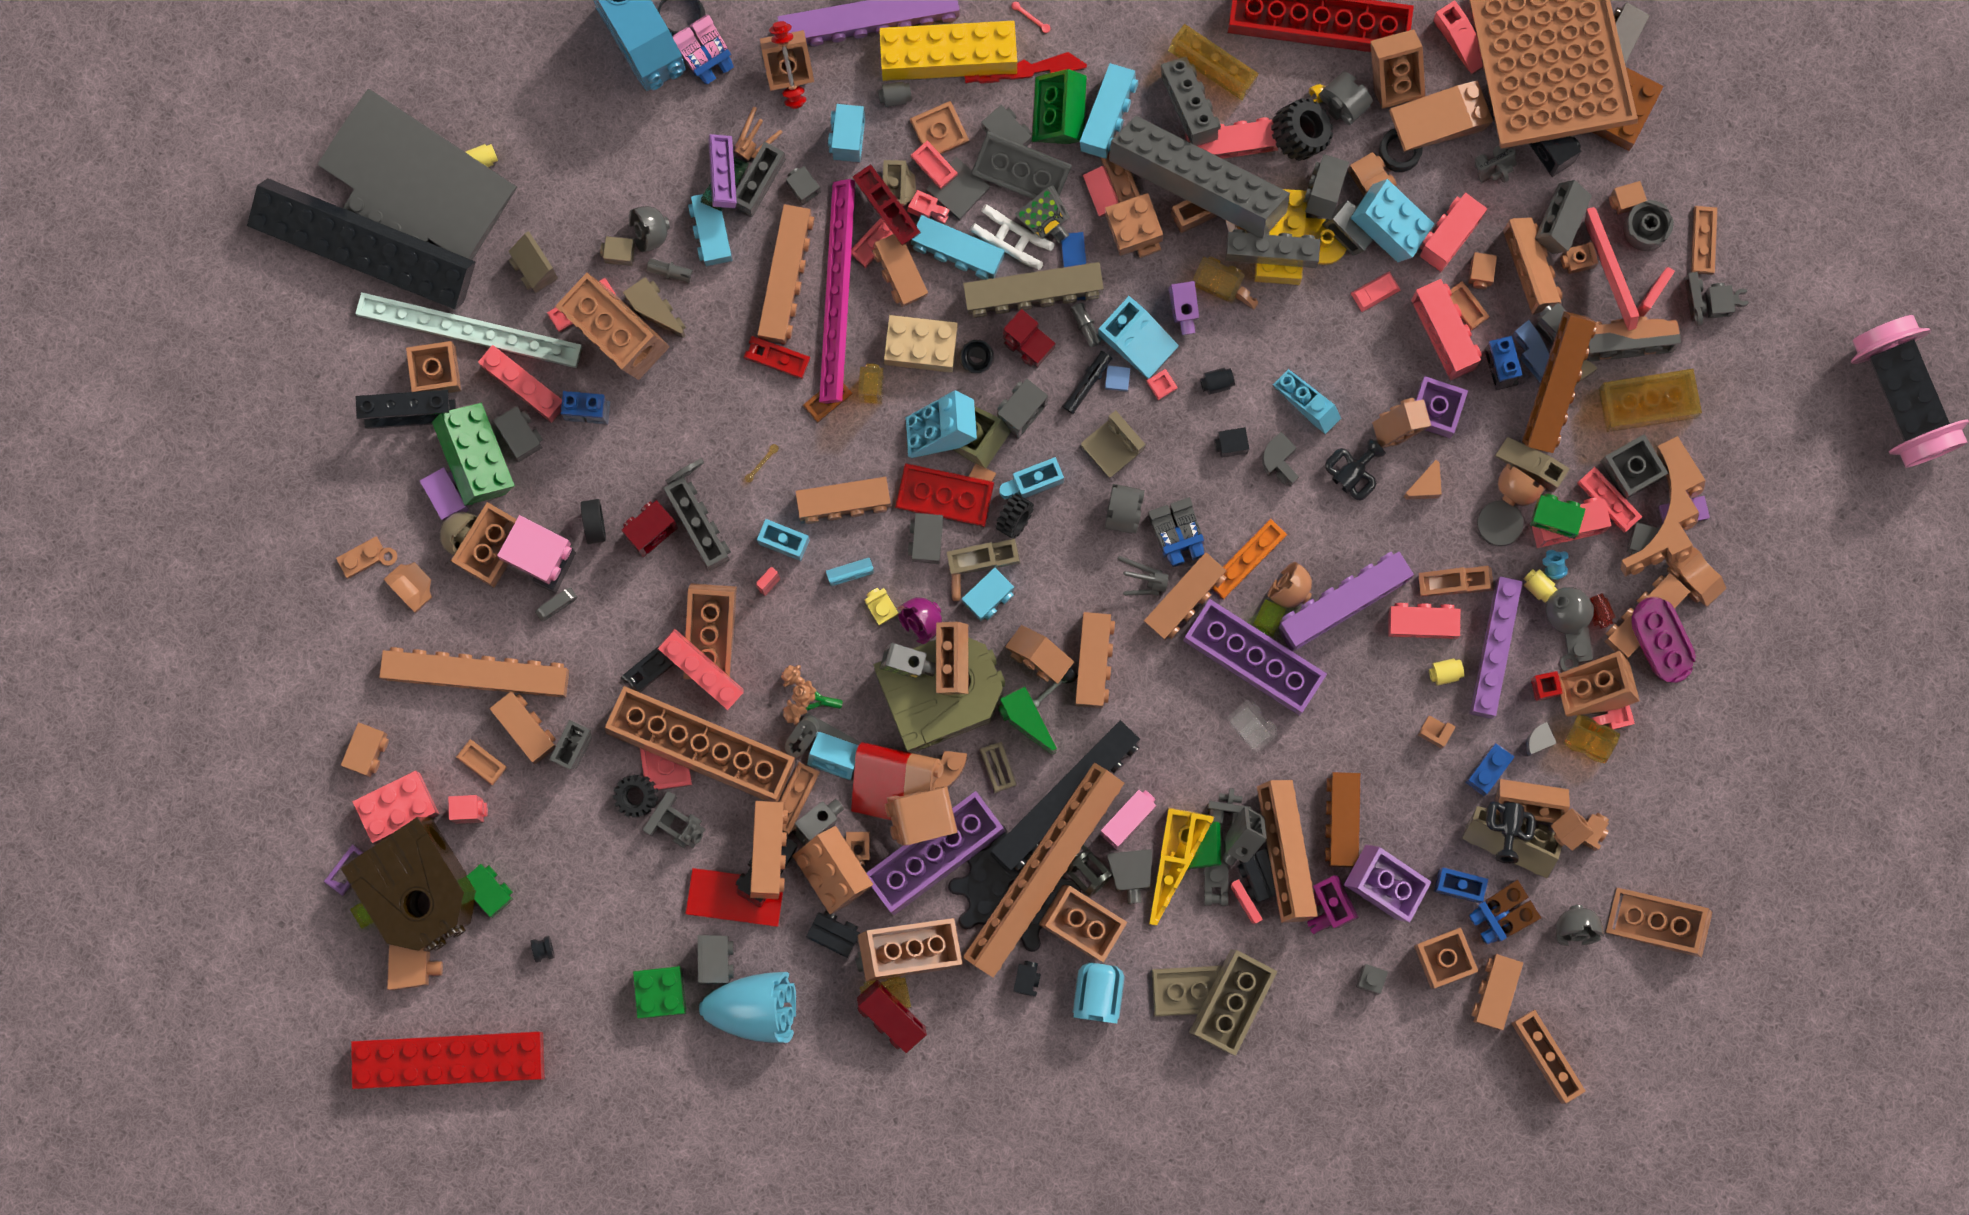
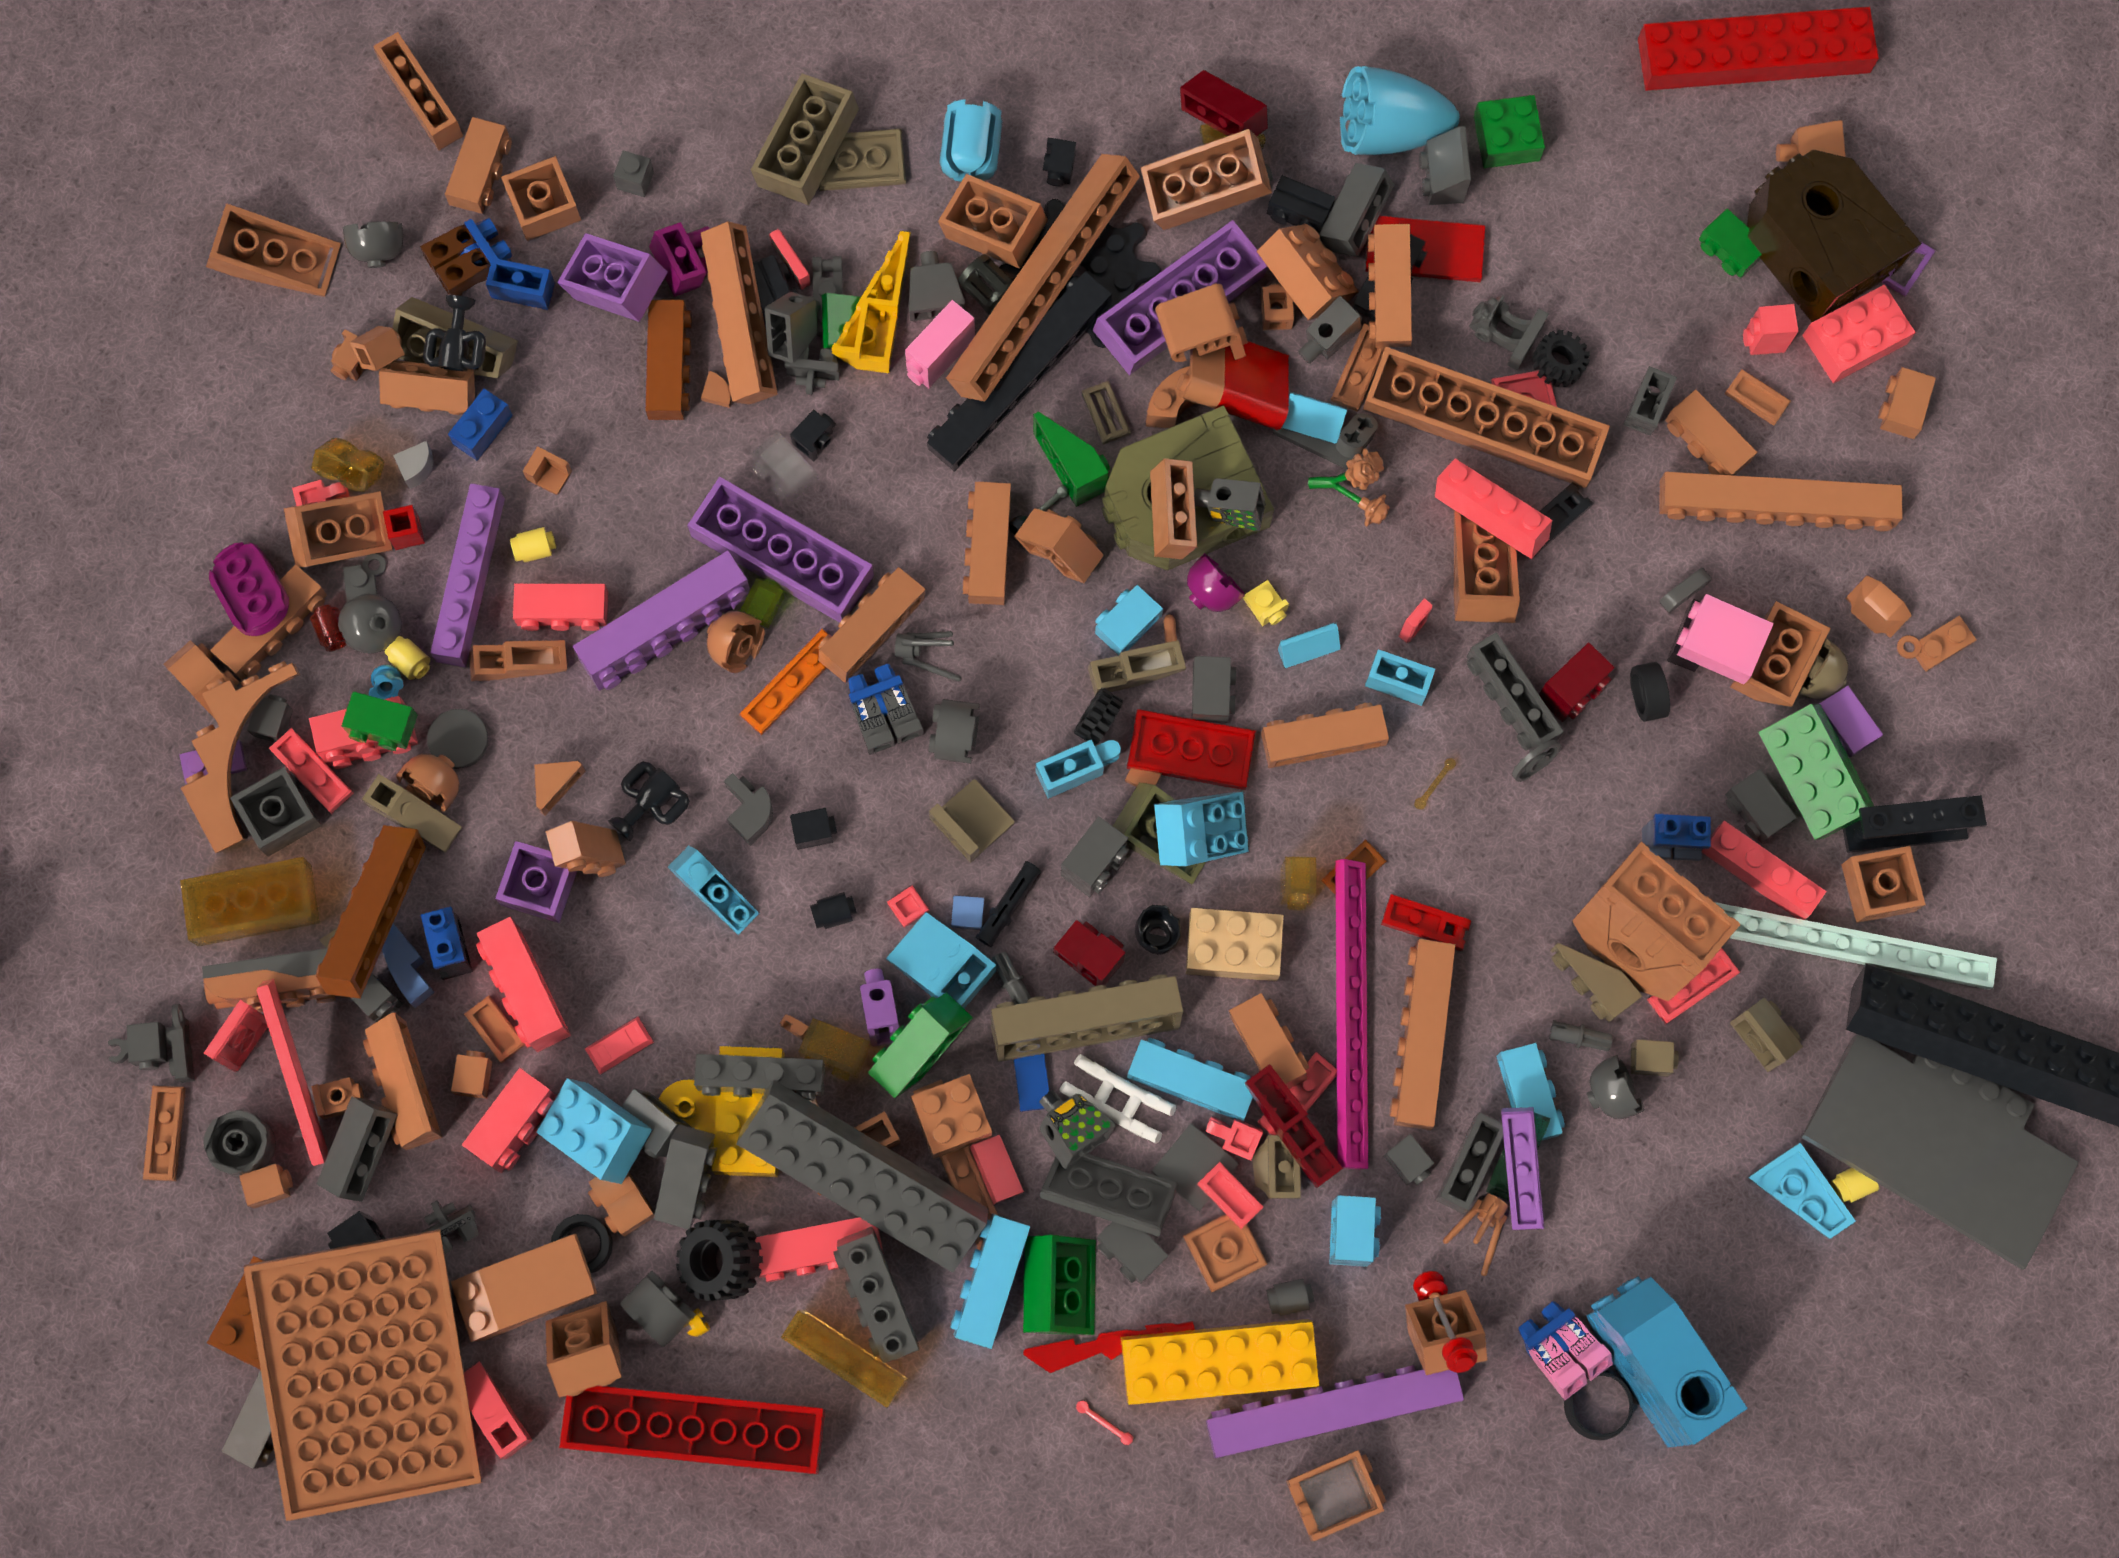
camera: 175 degrees right, 5 degrees down
(518, 156) = (1804, 1190): none -> medium azure wing
(542, 949) = (1657, 178): black wheel -> none
(789, 927) = (1356, 209): none -> dark grey brick
(1155, 271) = (919, 1044): none -> brick
(1228, 754) = (813, 433): none -> black brick
(1304, 795) = (716, 390): none -> nougat tile

